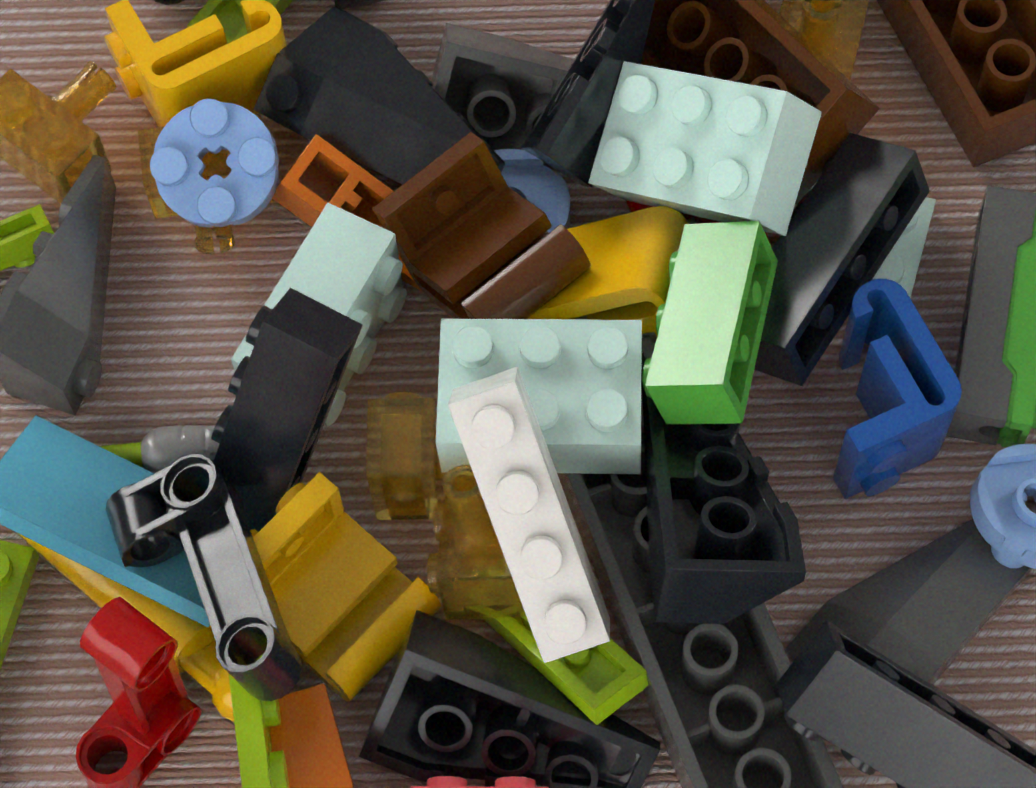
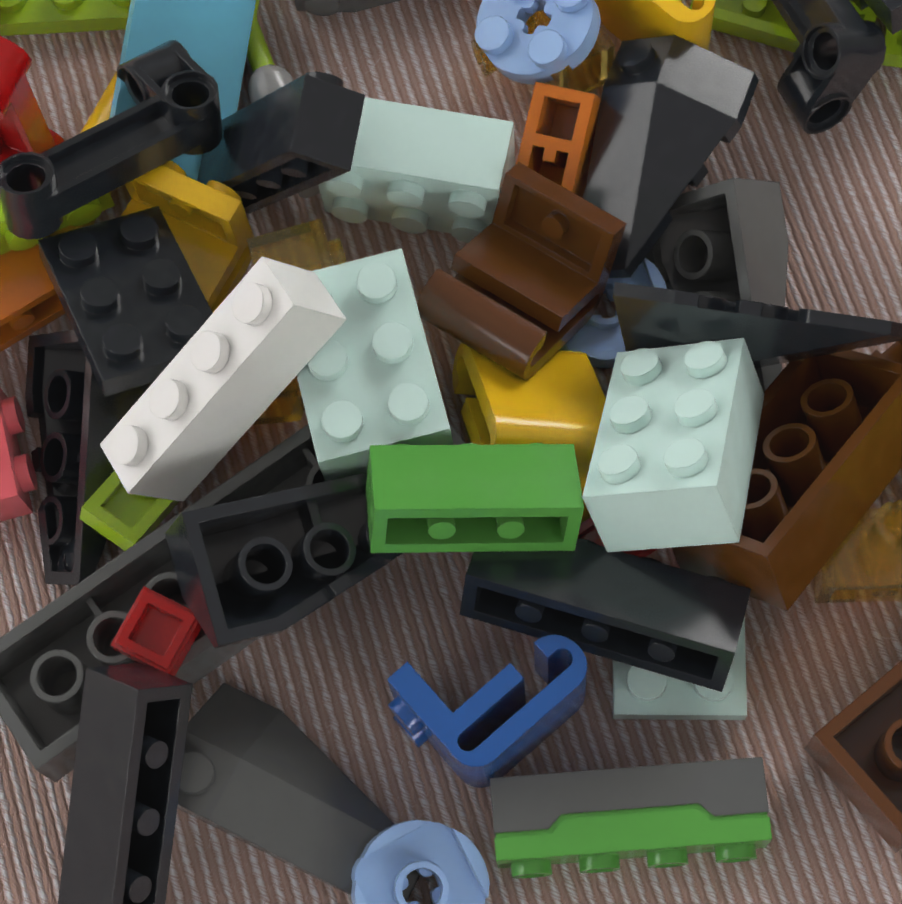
camera: 80 degrees right, 5 degrees up
(389, 605) = (126, 296): none -> black plate
(748, 661) = (157, 632): none -> red tile

